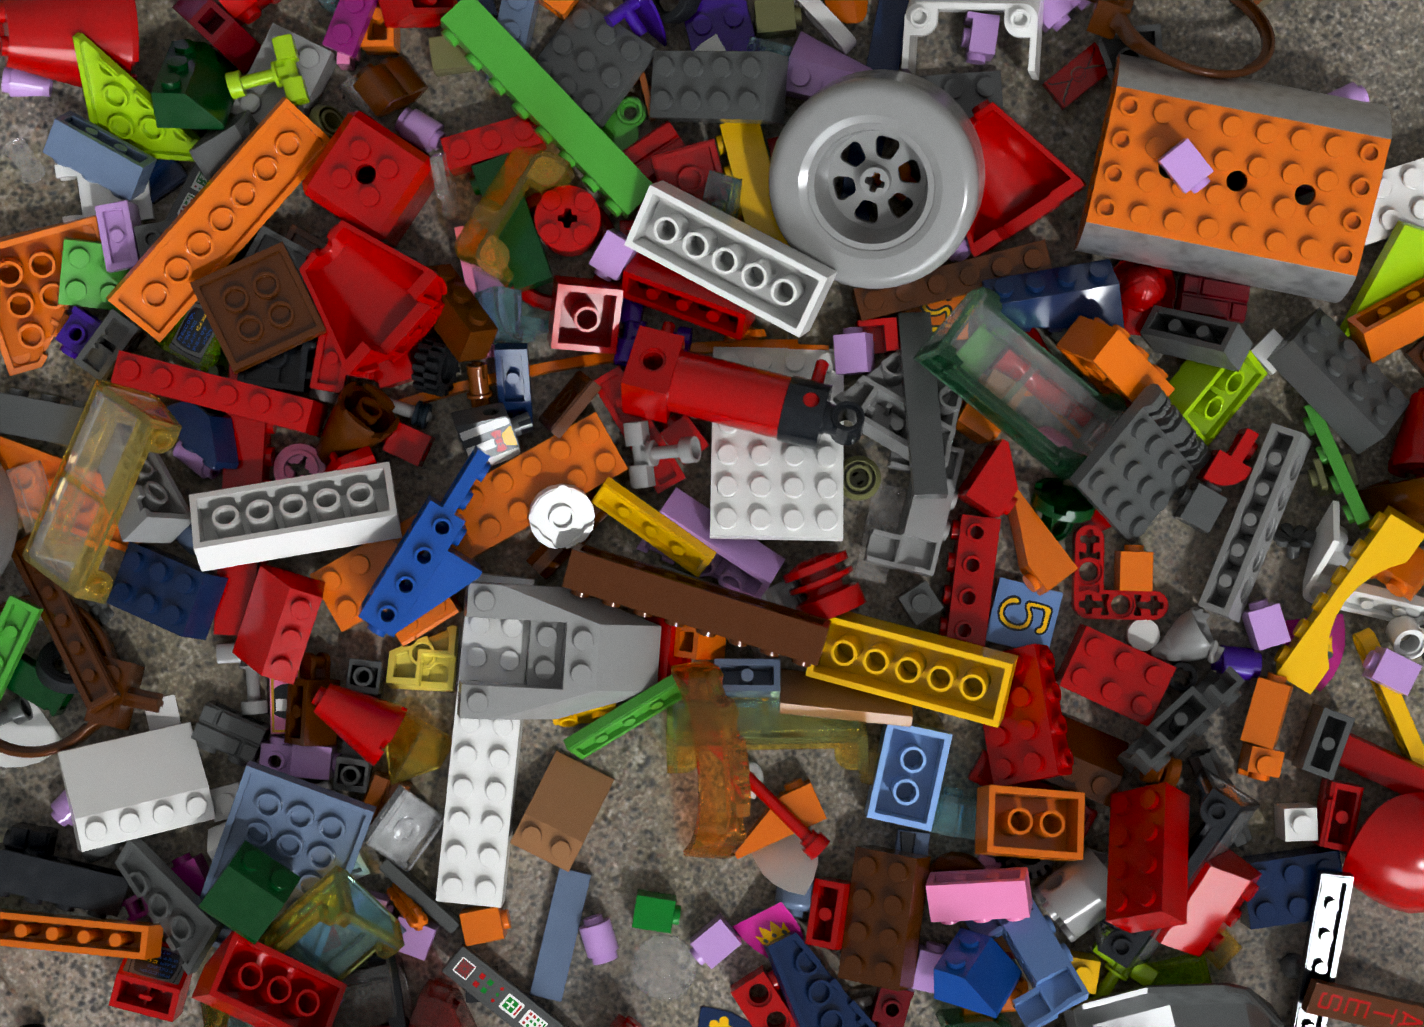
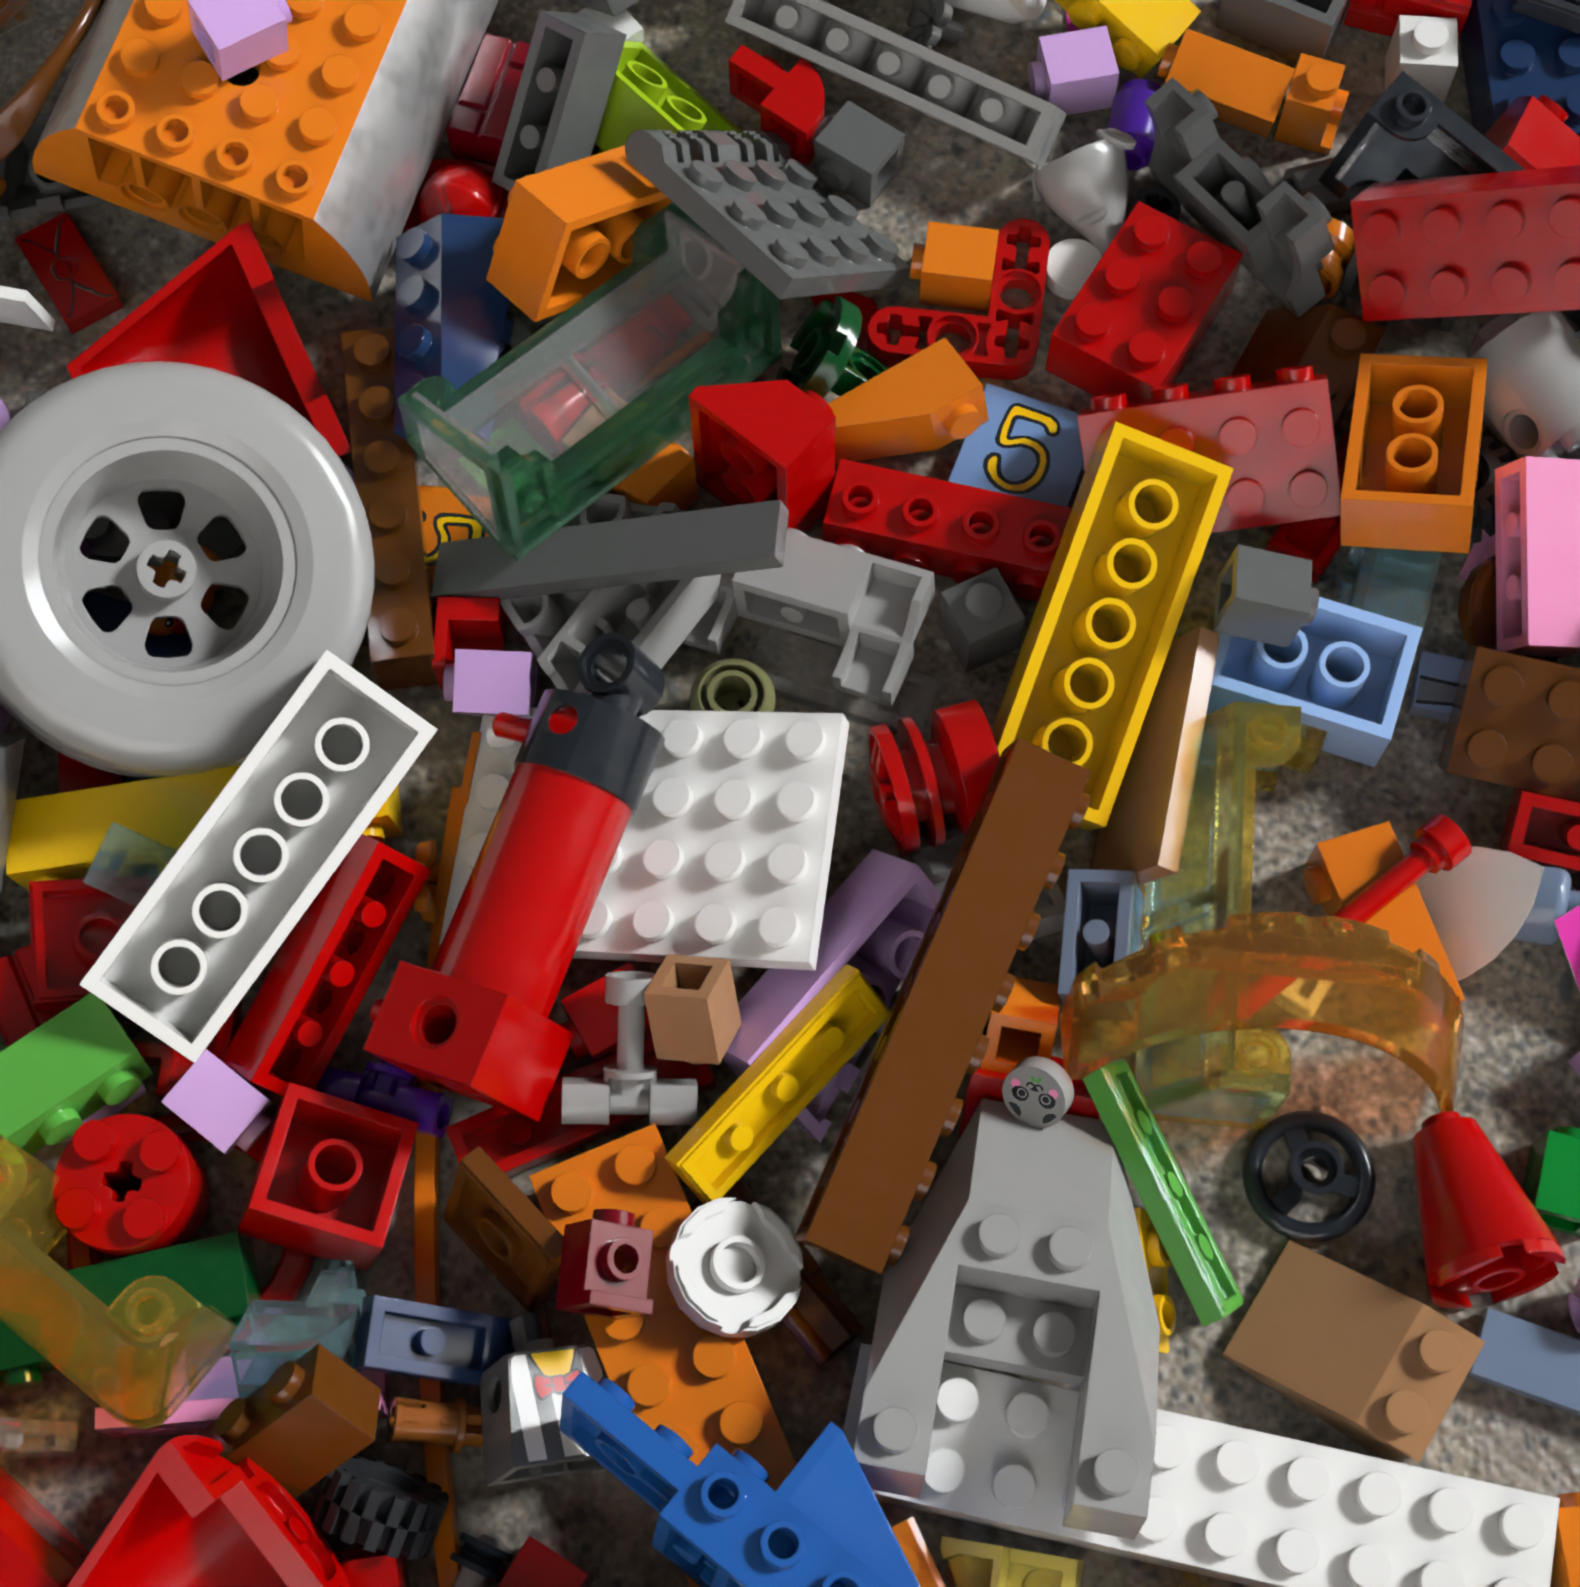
camera: 80 degrees left, 20 degrees down
(549, 457) = (605, 1267): none -> dark red brick
(632, 866) = (1476, 1218): none -> red cone
(644, 799) = (1322, 1156): none -> black piece
(663, 652) = (1038, 1091): none -> light grey tile
(683, 480) = (692, 1009): none -> medium nougat brick
(930, 748) = (1264, 596): none -> dark grey brick

